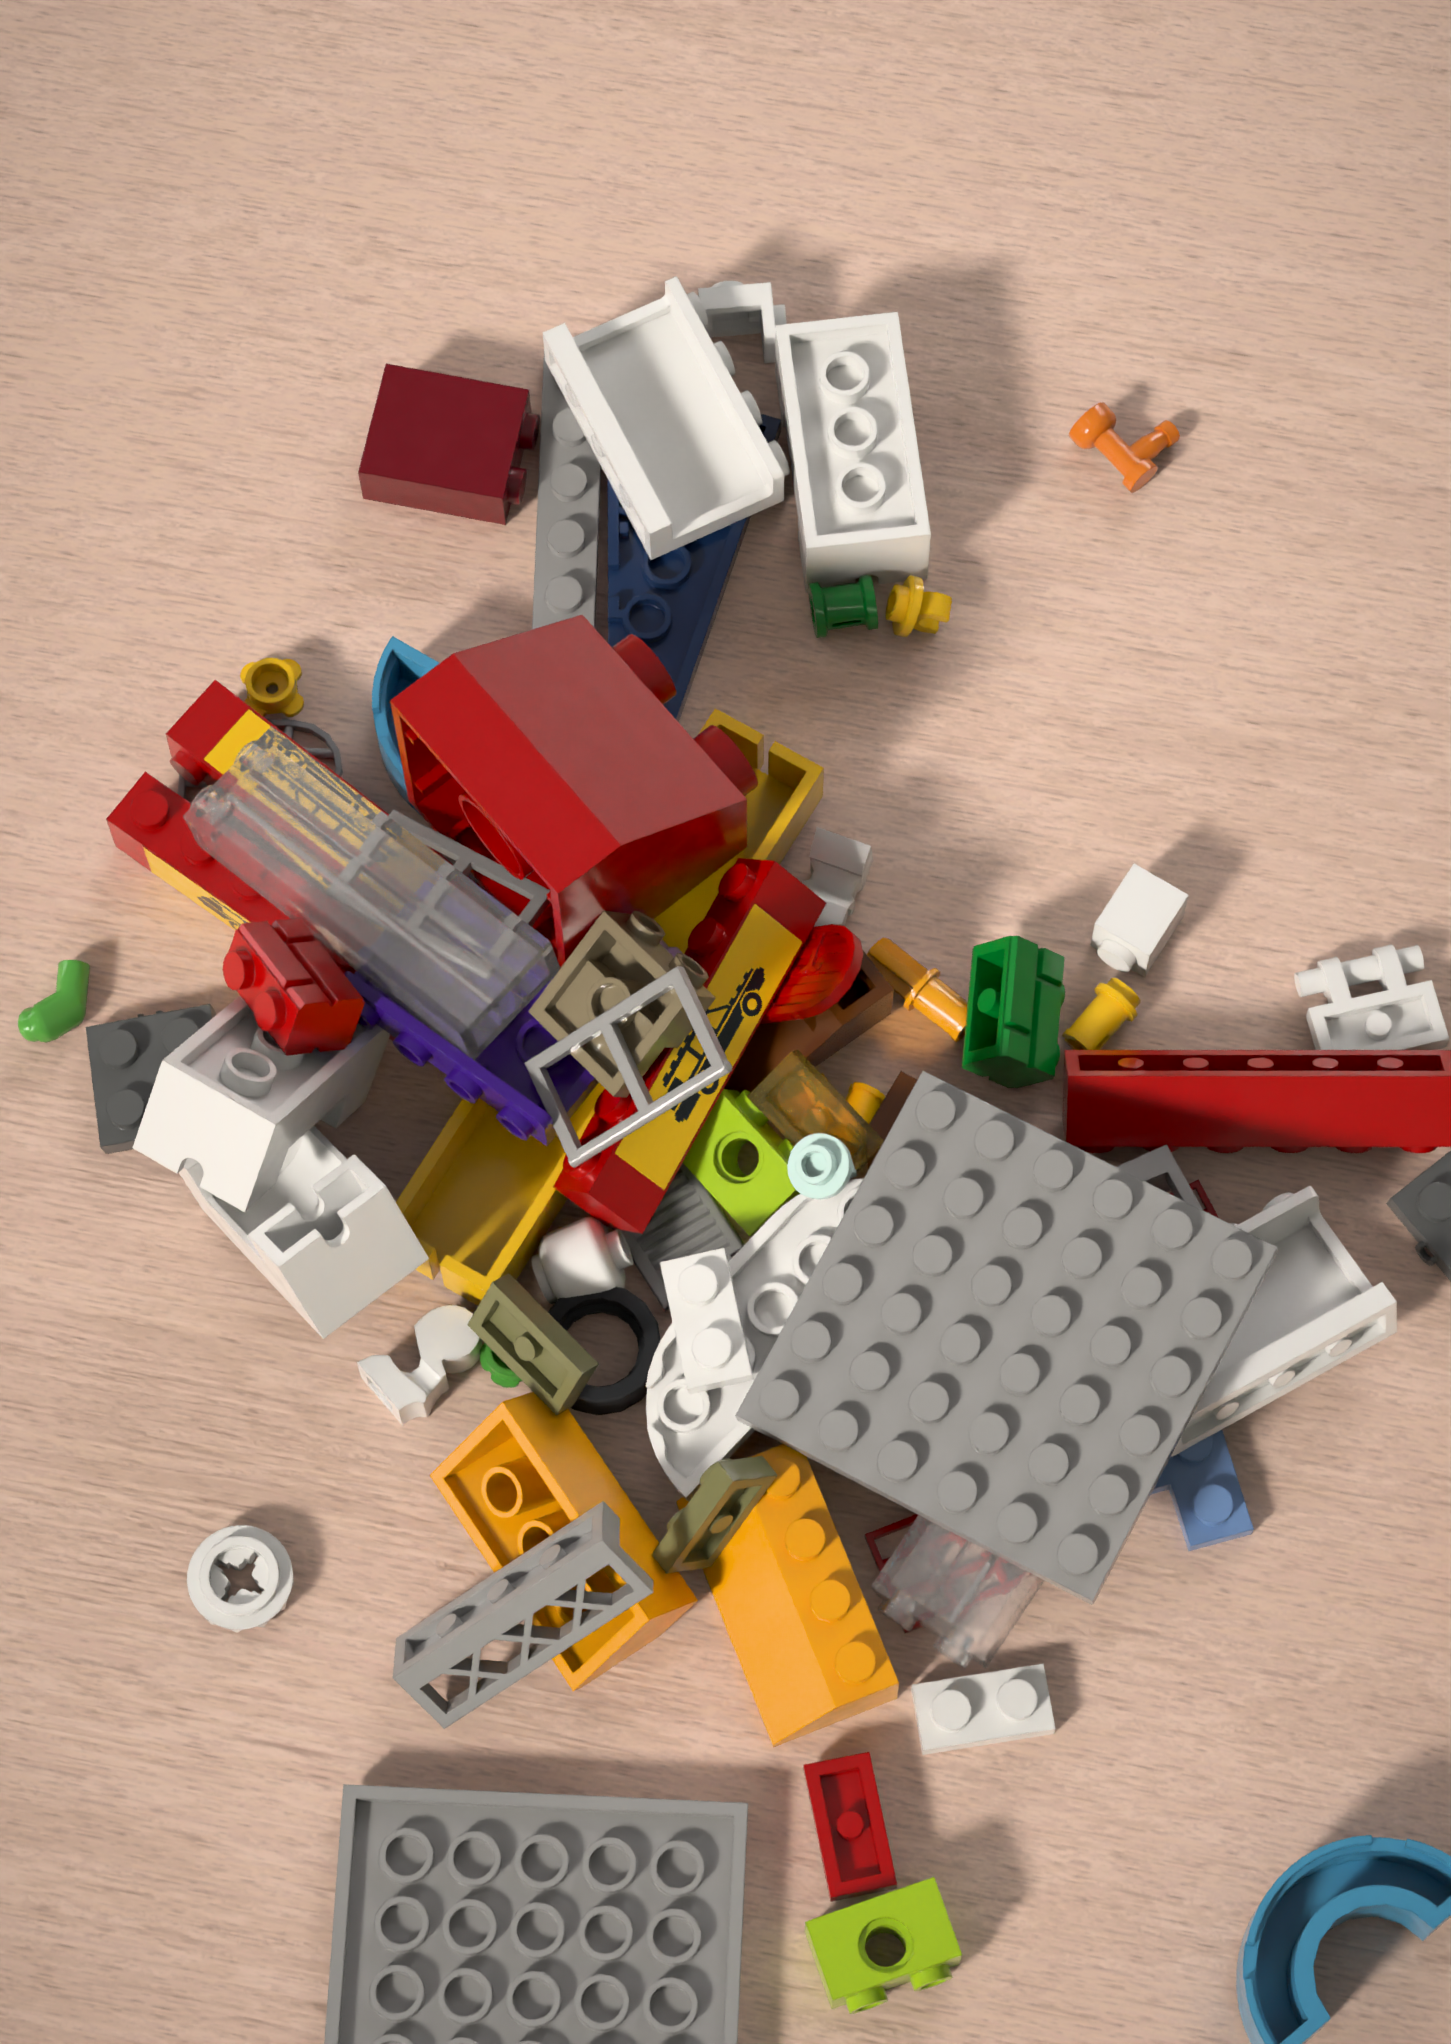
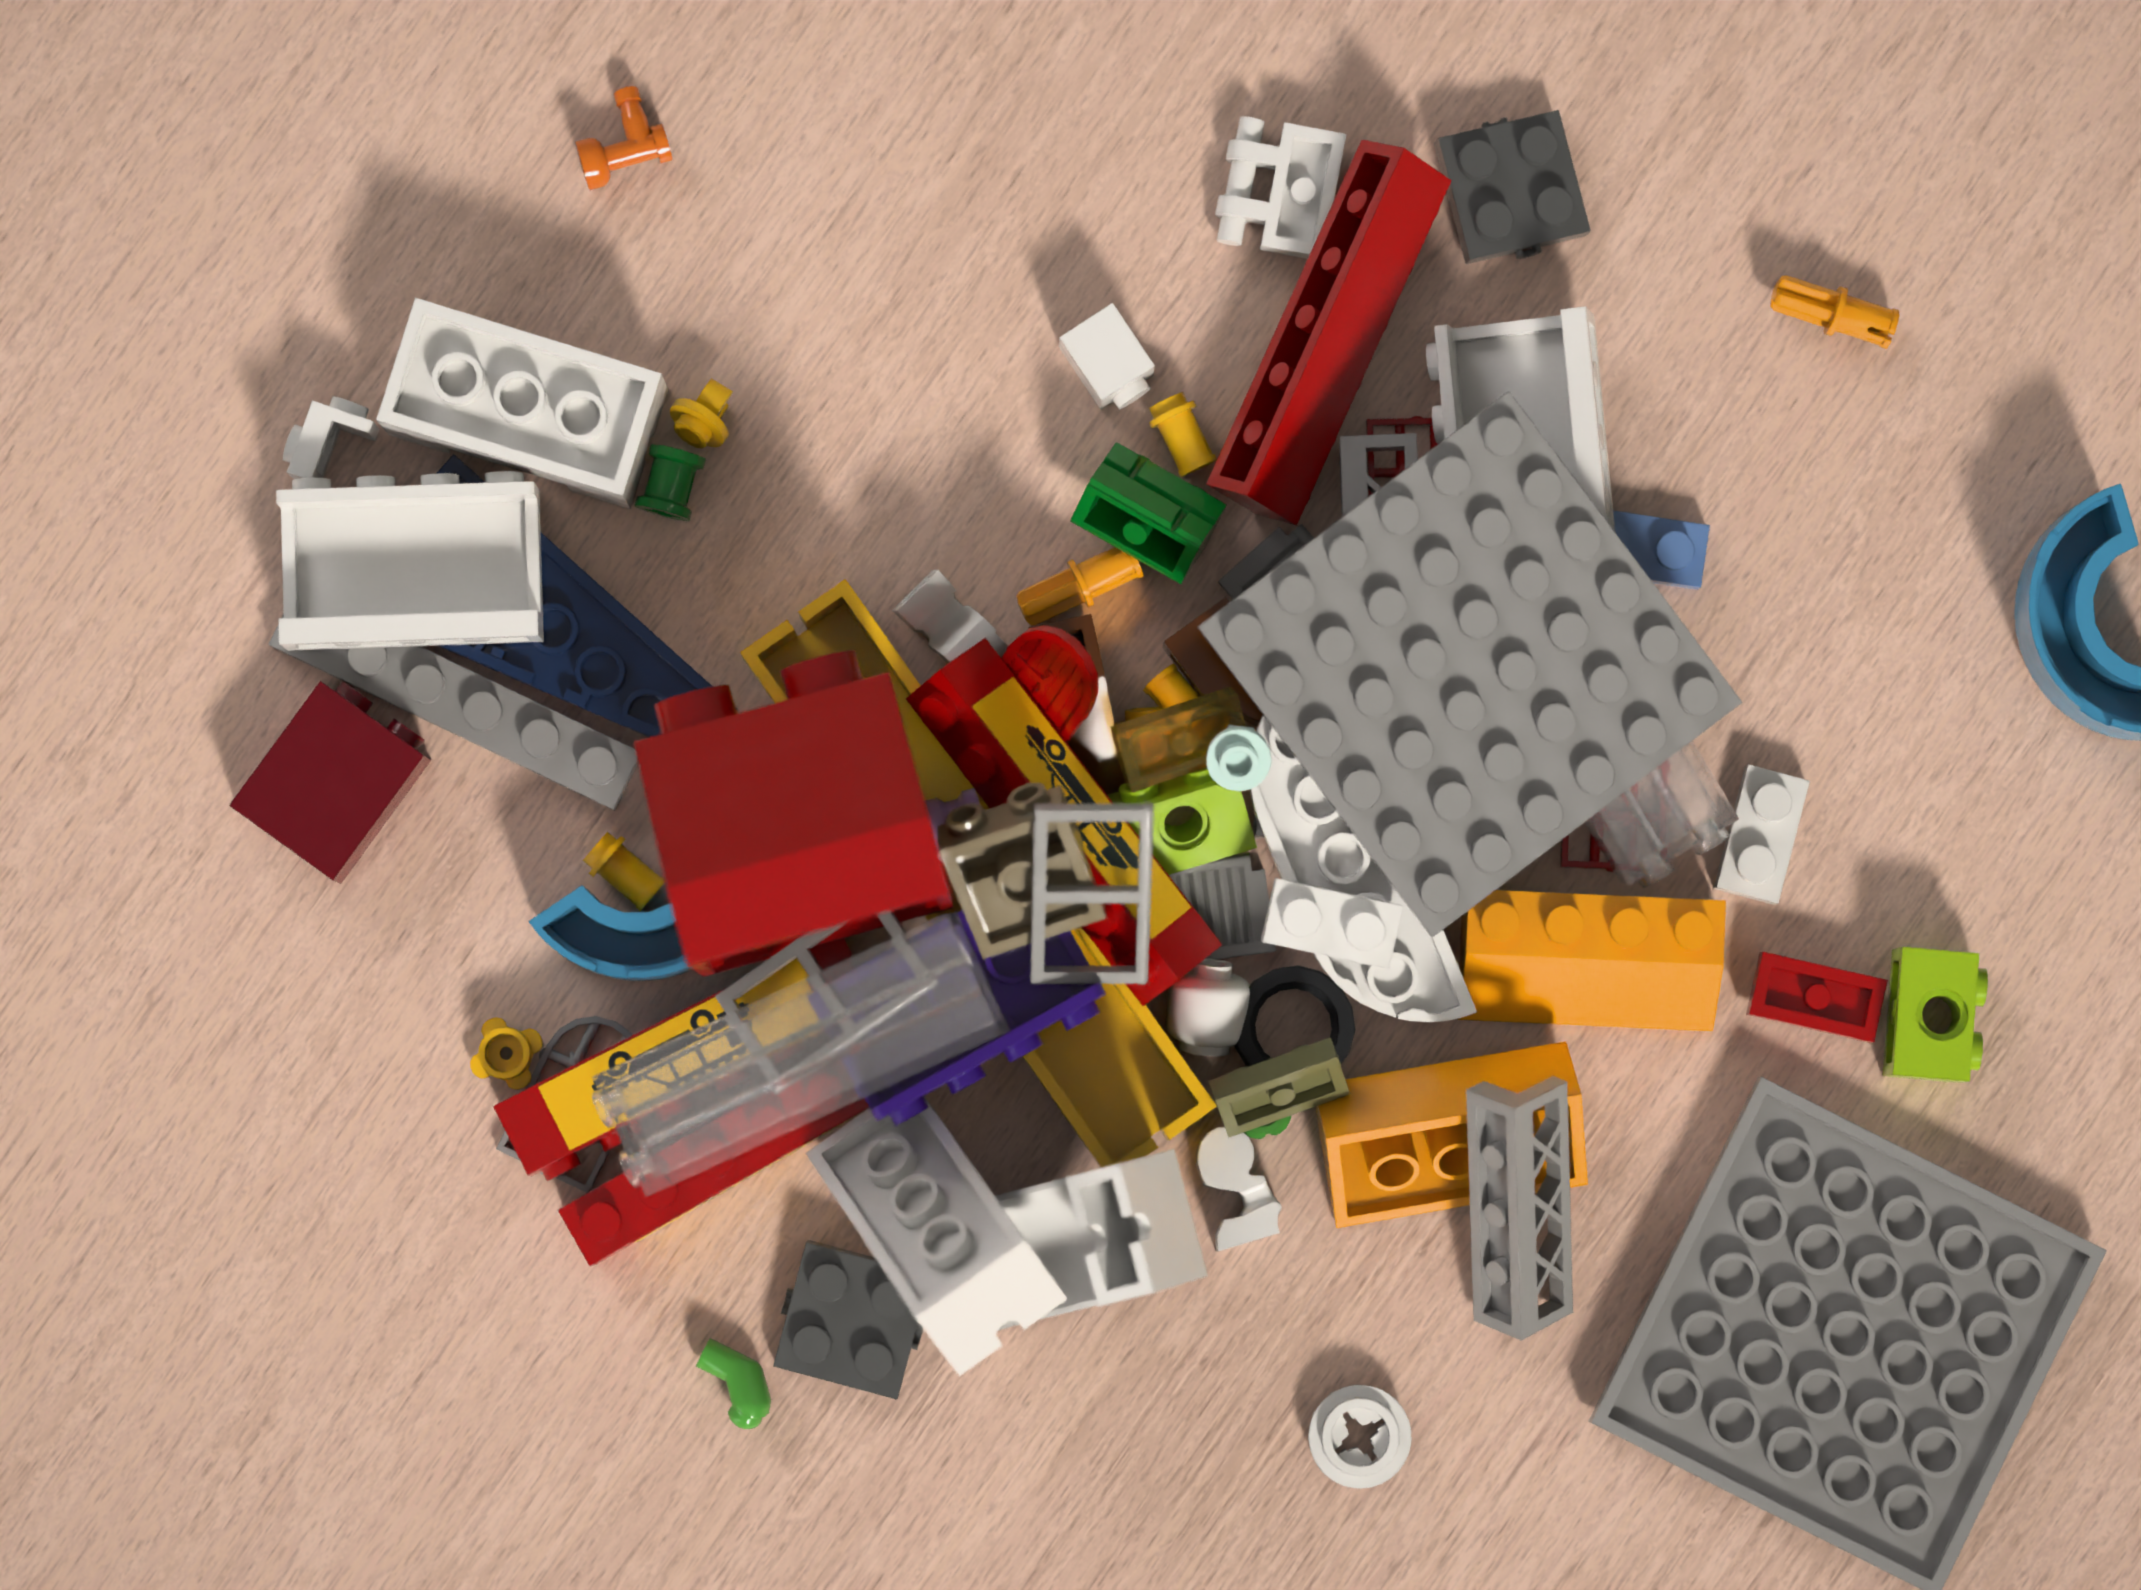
camera: 75 degrees left, 15 degrees up
(292, 986) = (866, 1165): red brick -> none
(714, 1513) = (1509, 1009): olive plate -> none

